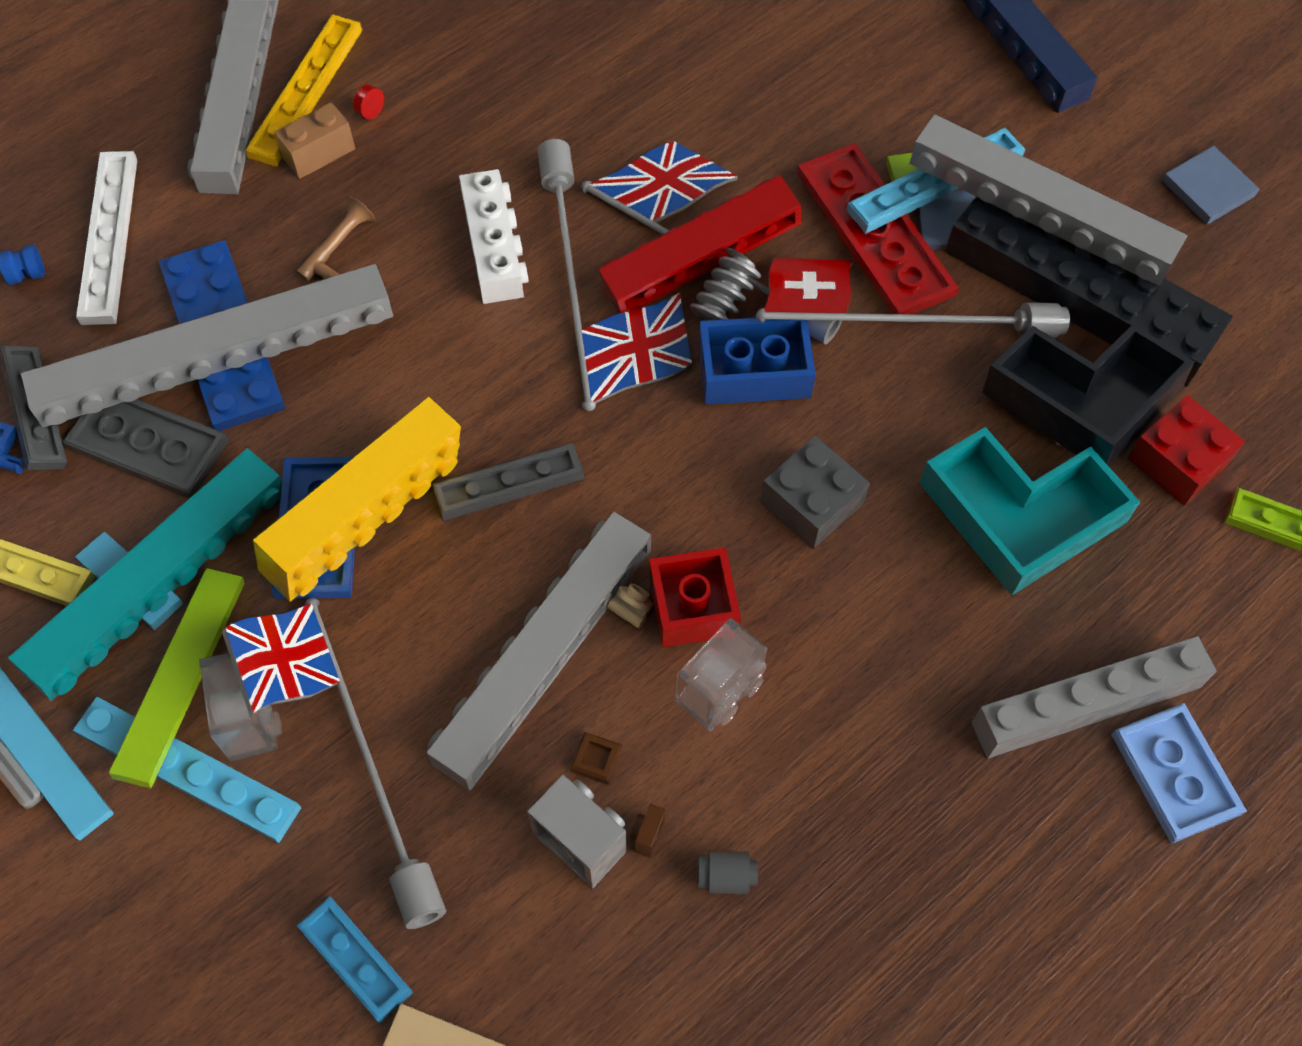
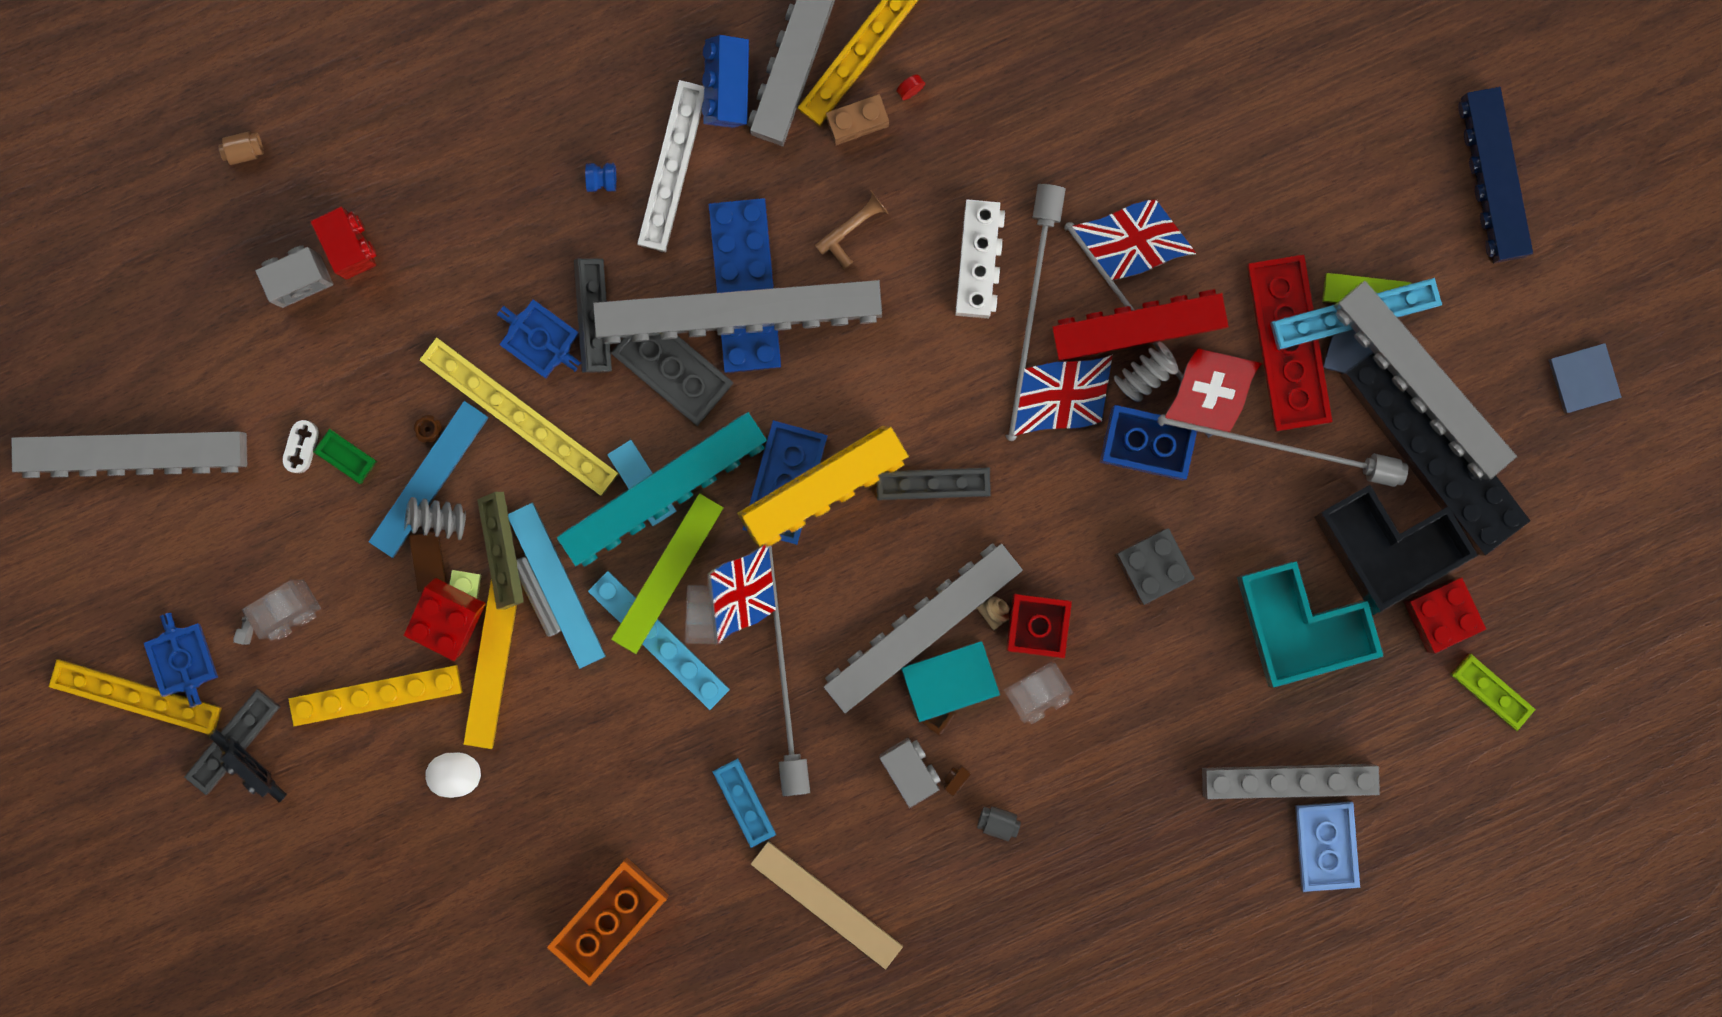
camera: 20 degrees right, 25 degrees up
(153, 139) = (725, 81): none -> blue brick
(600, 706) = (950, 681): none -> teal tile

